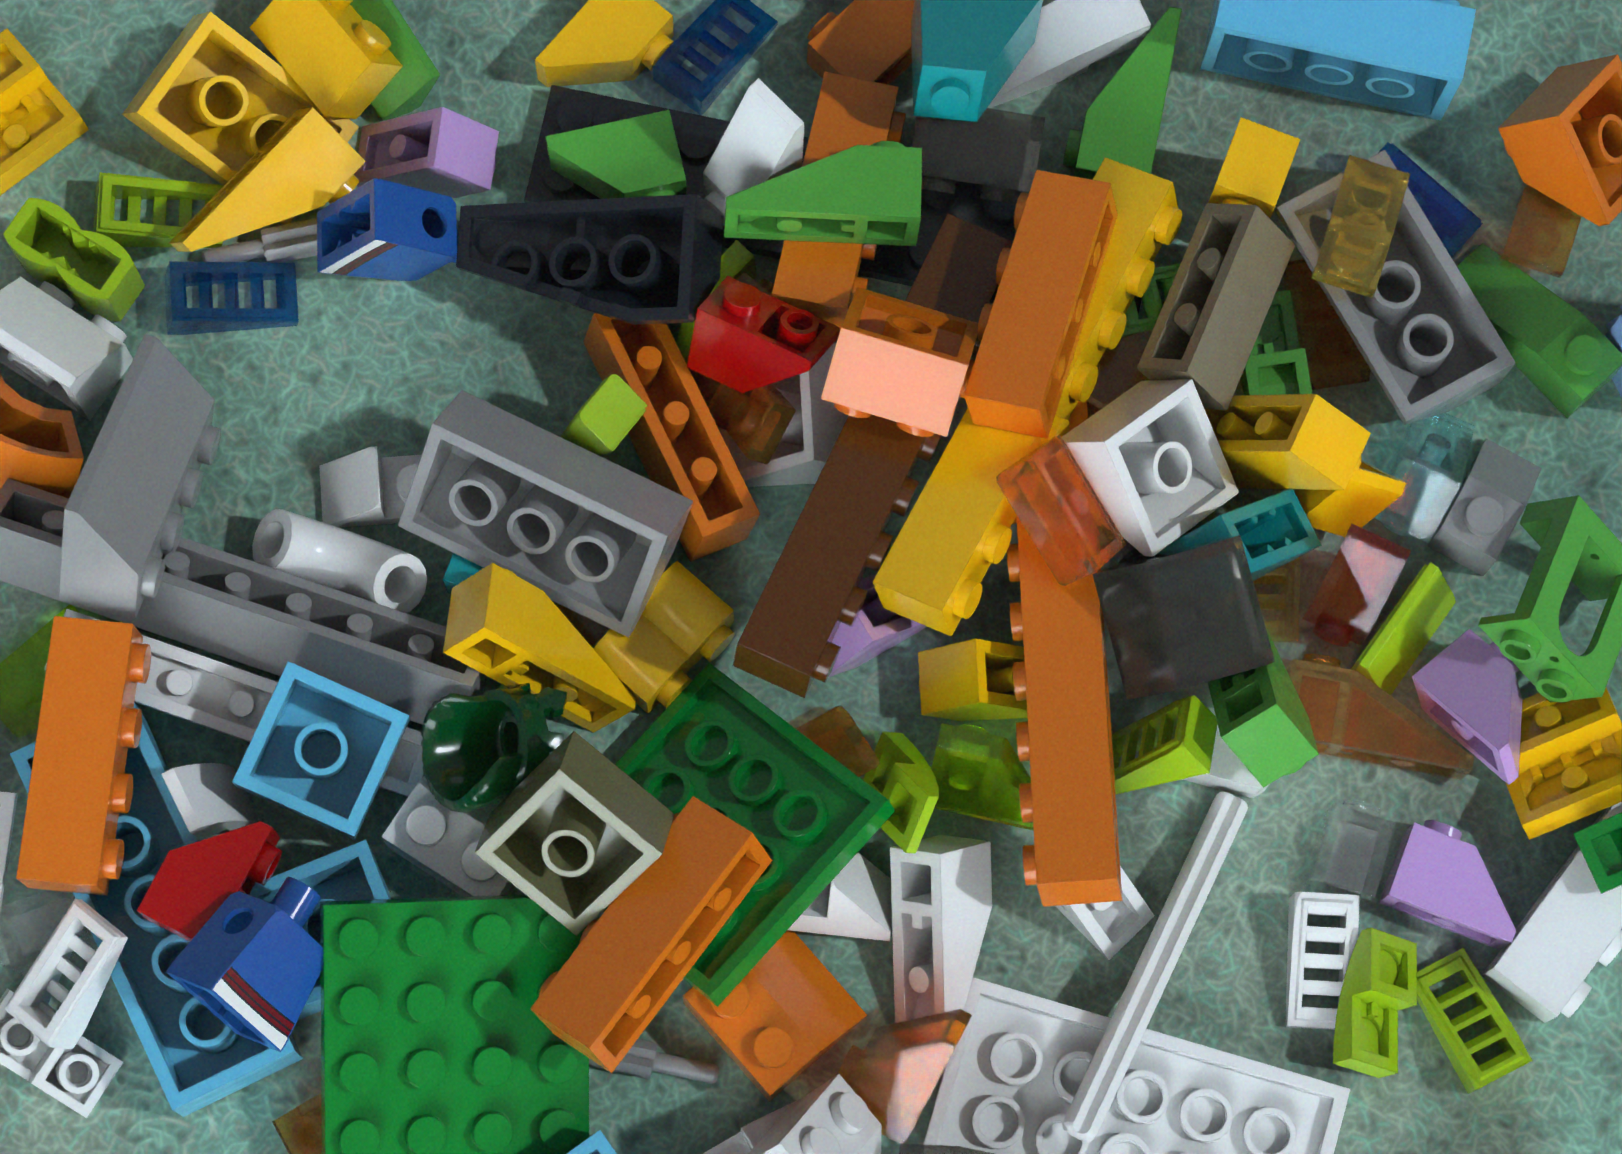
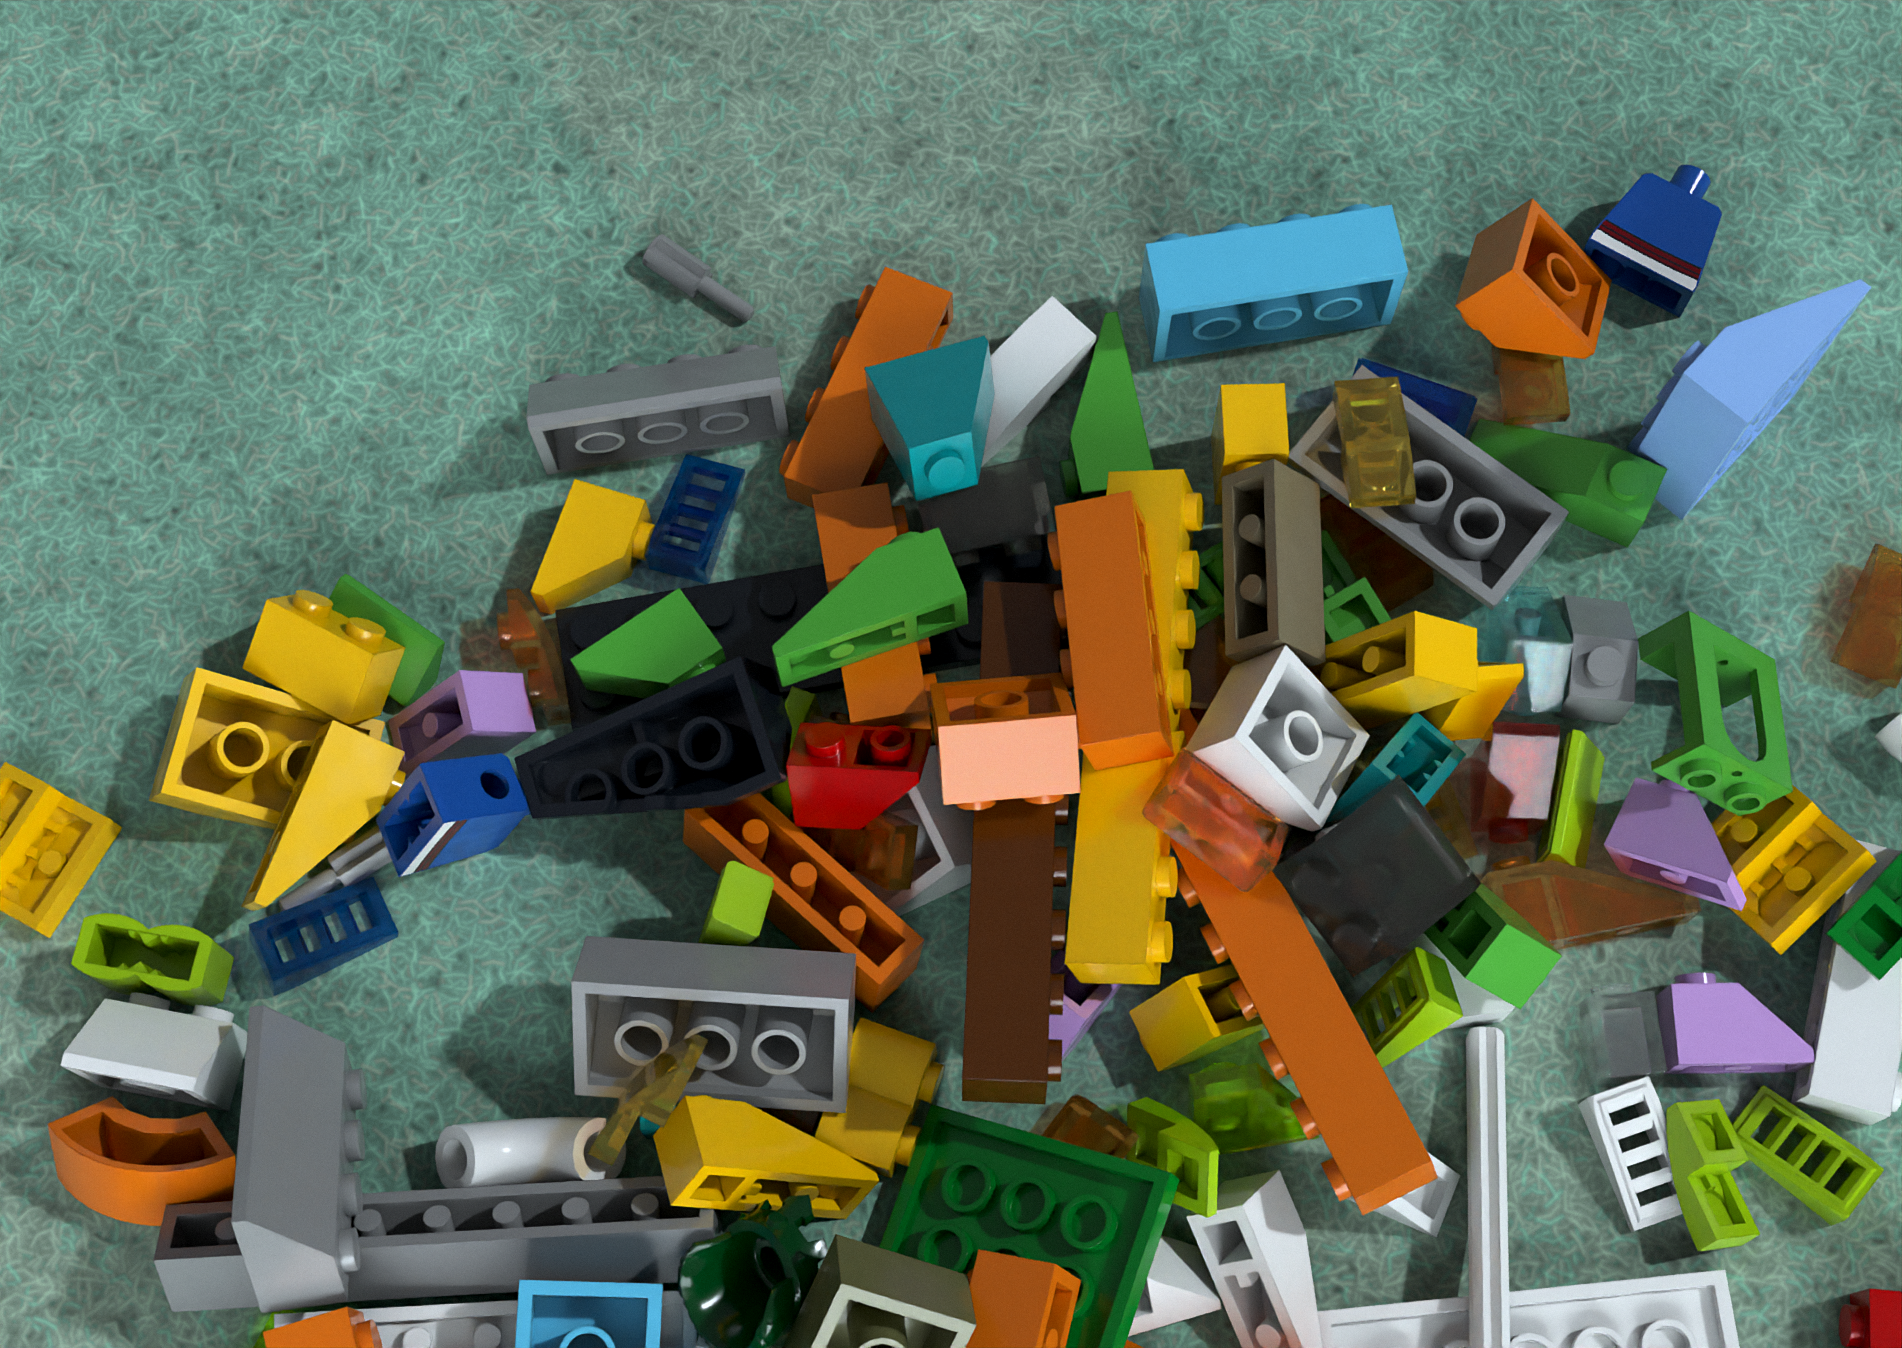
camera: 15 degrees left, 5 degrees down
(137, 188) = (190, 866): lime slope -> none
(366, 488) = (528, 1068): white slope -> none
(462, 551) = (649, 1095): none -> clear yellow slope
(516, 104) = (532, 647): none -> clear orange slope
(756, 147) = (779, 589): white slope -> none

